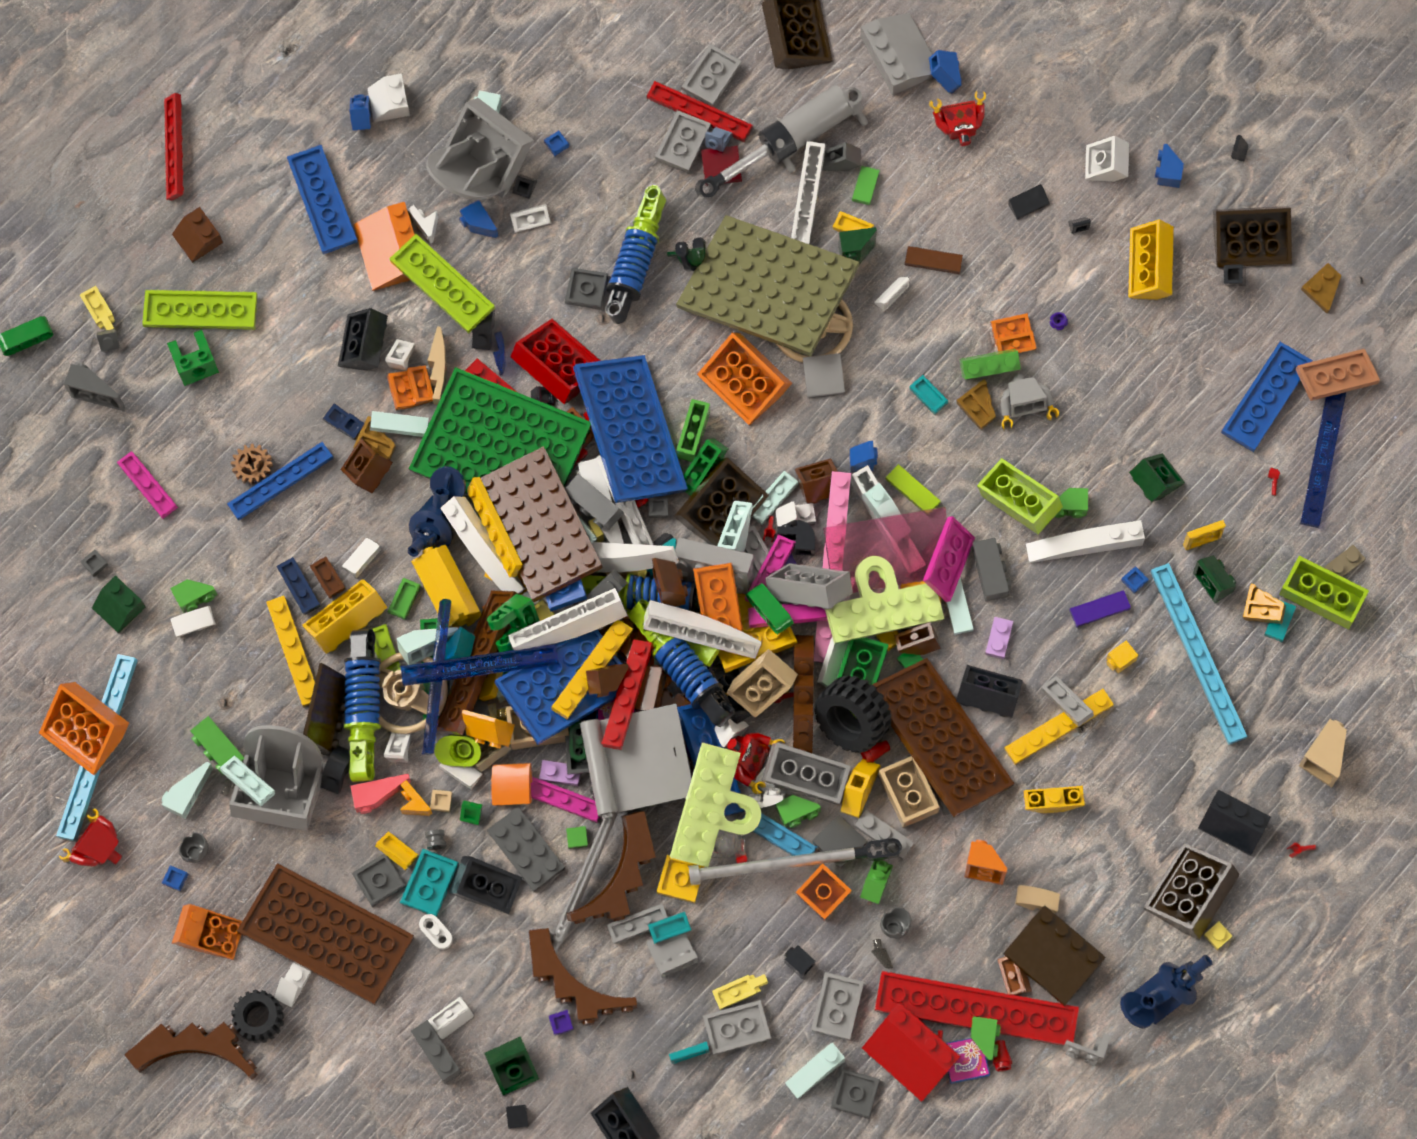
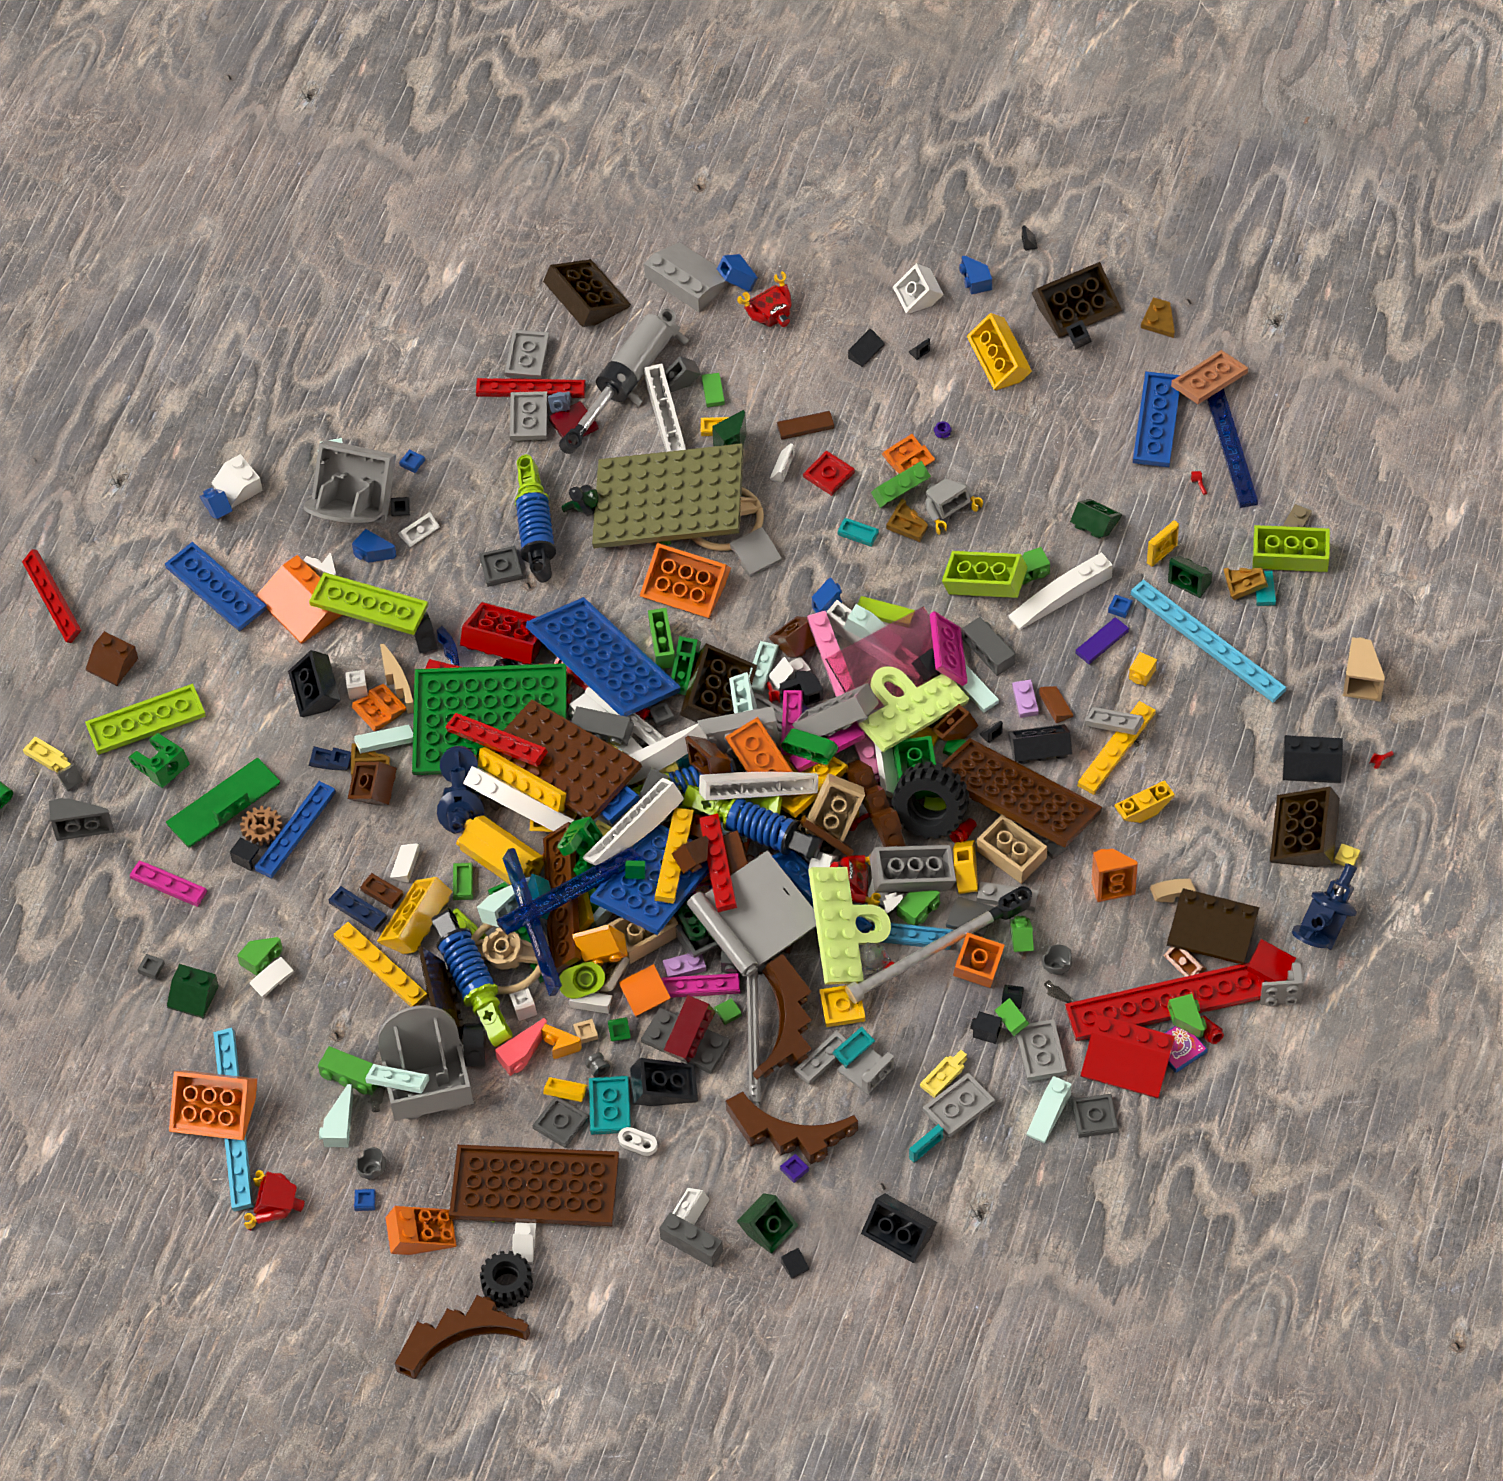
camera: 25 degrees left, 15 degrees down
(224, 485) = (243, 853): none -> black panel
(230, 424) = (223, 802): none -> green bracket
(491, 476) = (496, 739): none -> red plate
(529, 845) = (689, 1029): none -> dark red wedge
(547, 671) = (635, 869): none -> green tile
(742, 707) = (826, 836): none -> reddish brown tile
(826, 962) = (1012, 1017): none -> bright green tile
(839, 938) = (1015, 993): none -> black slope
(919, 566) = (926, 665): none -> black brick
(931, 320) = (828, 473): none -> red tile
(951, 658) = (992, 731): none -> black slope
(1024, 655) = (1055, 703): none -> dark orange slope
(1090, 1016) = (1270, 962): none -> red tile

